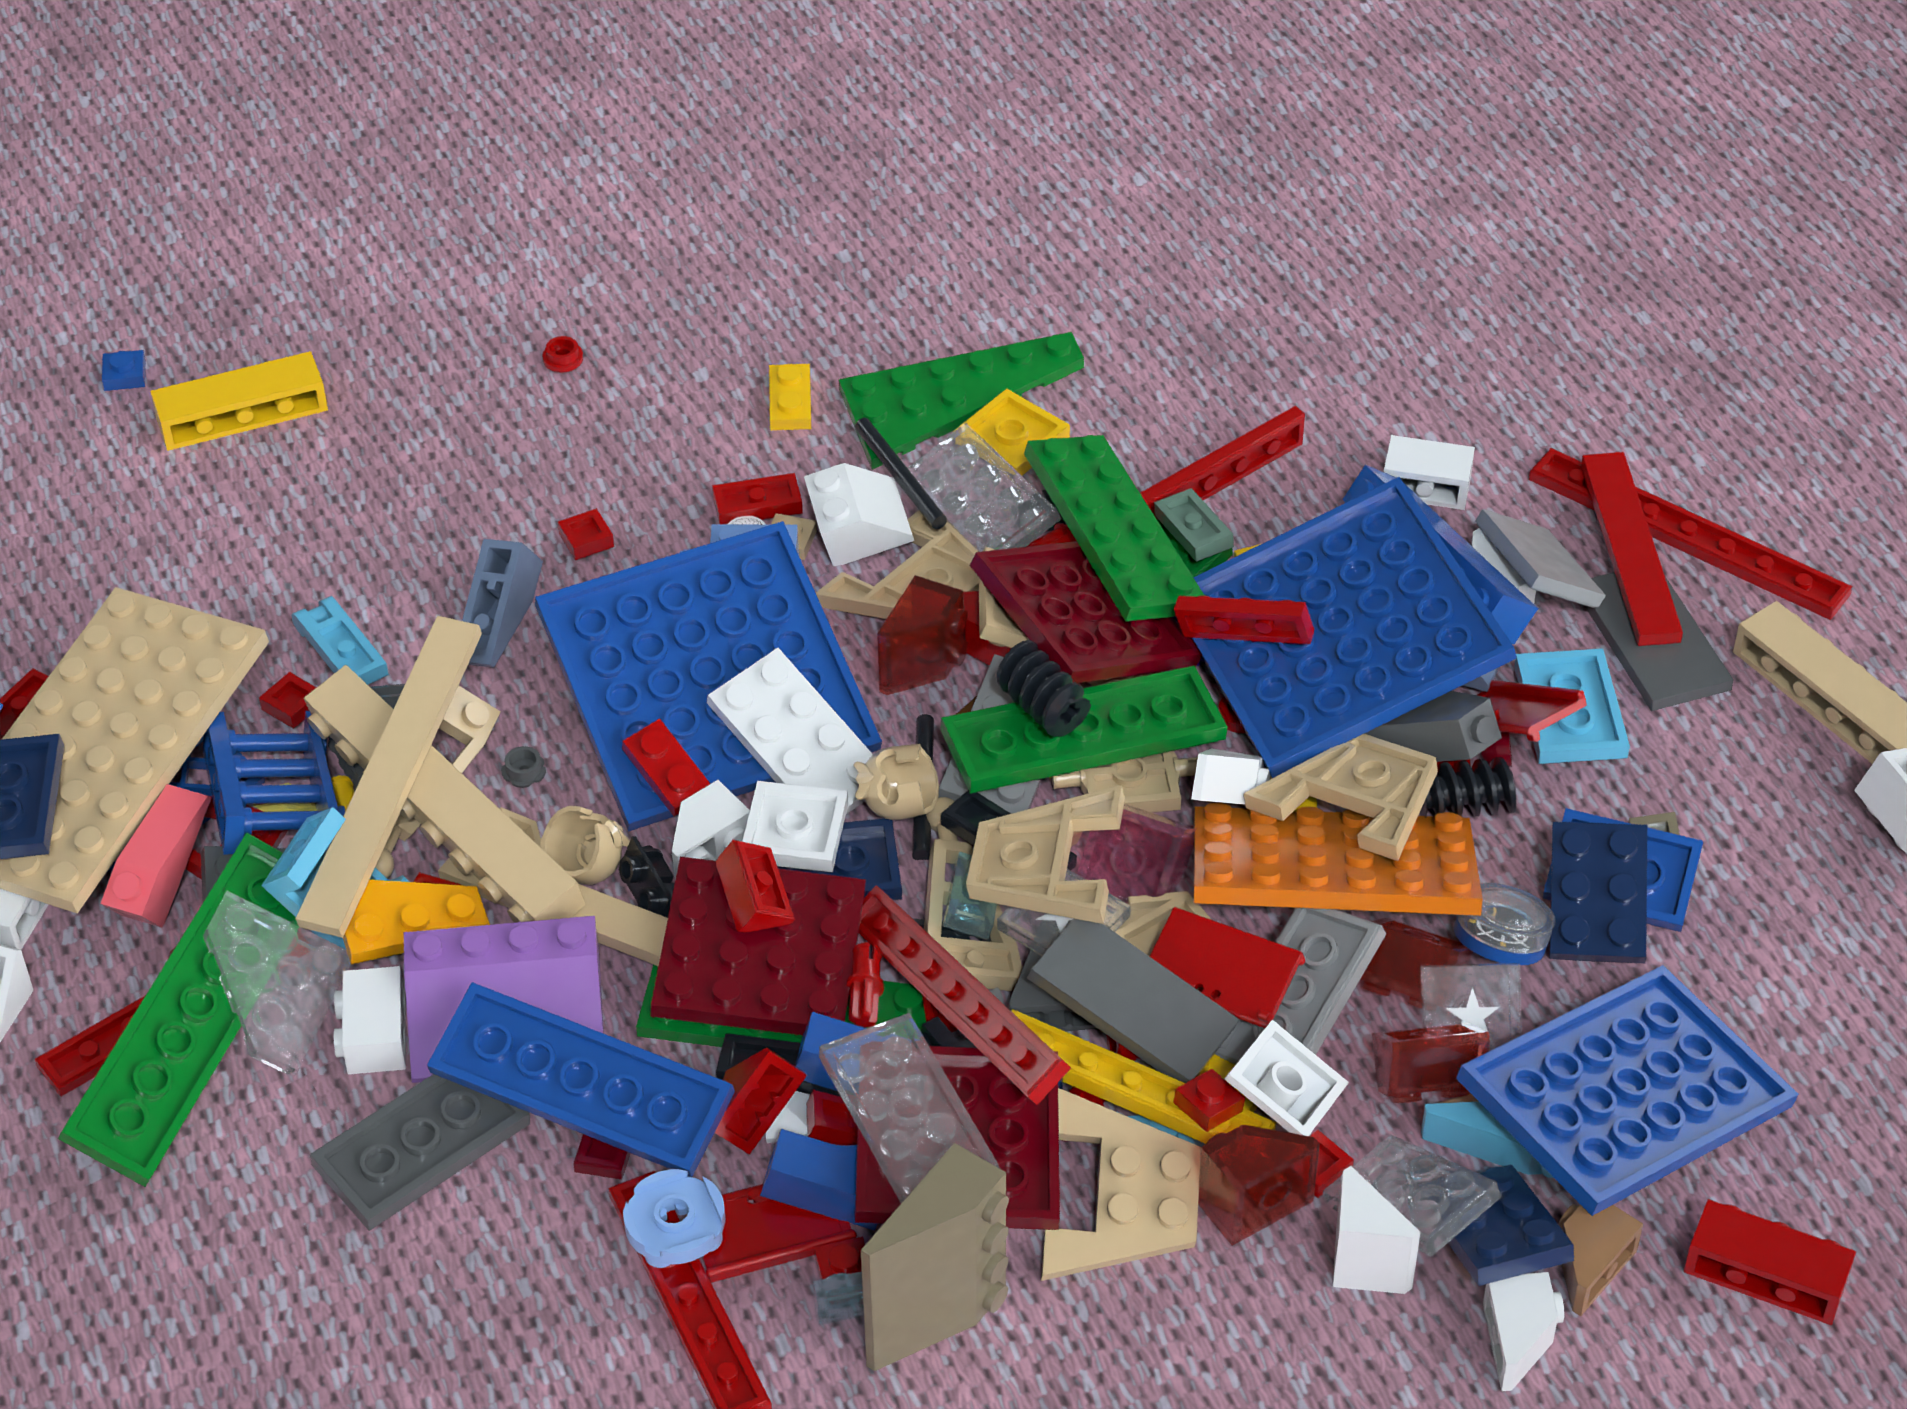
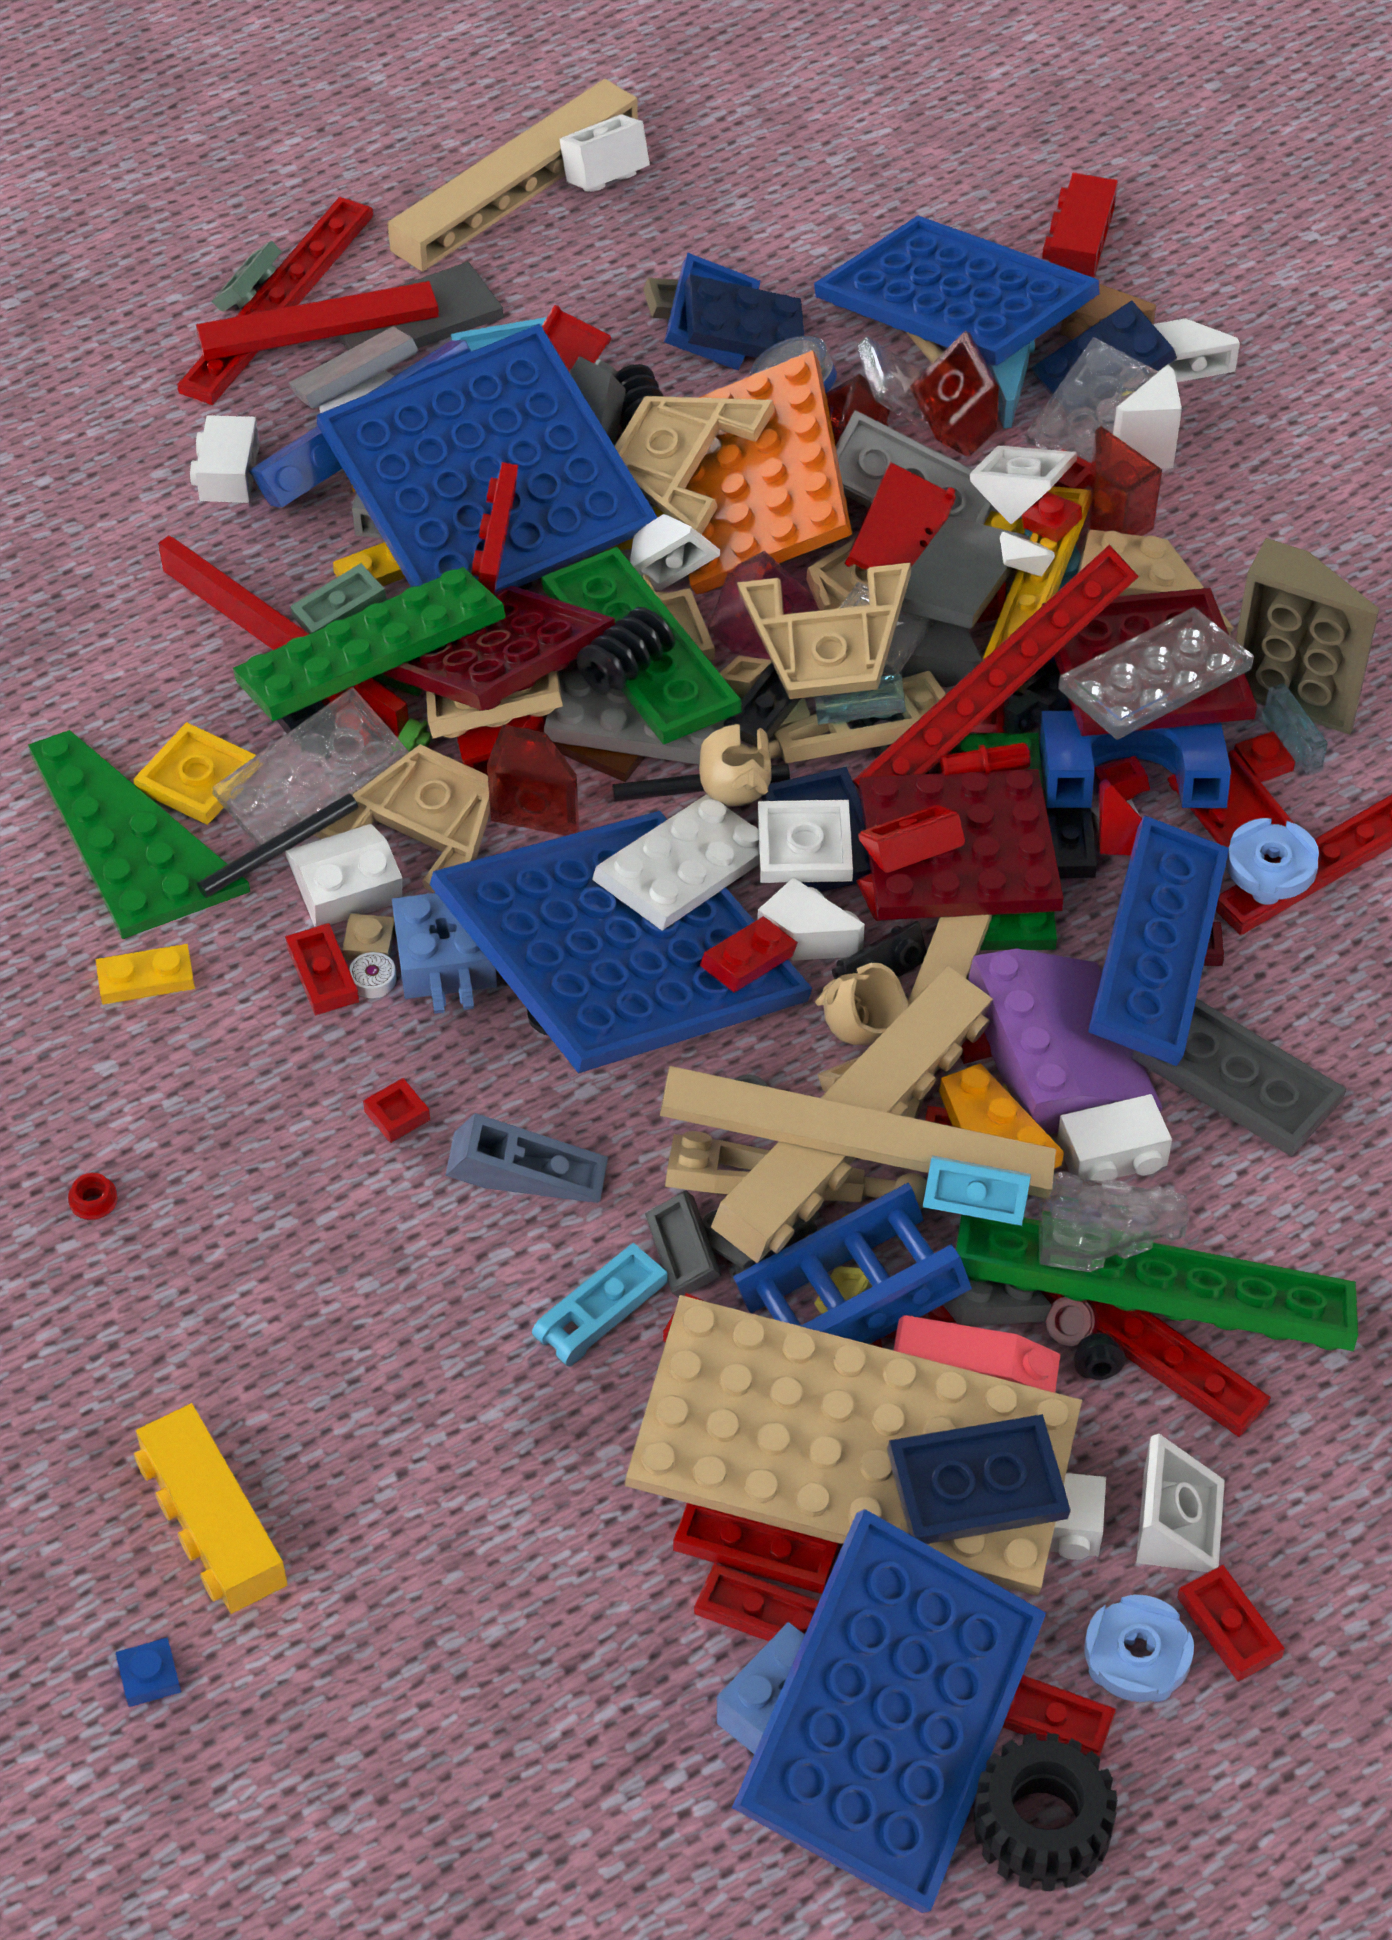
camera: 100 degrees left, 5 degrees up
(146, 965) = (1099, 1357): none -> black plate
(1148, 1056) = (1025, 554): none -> white slope
(1726, 511) = (255, 269): none -> sand green plate

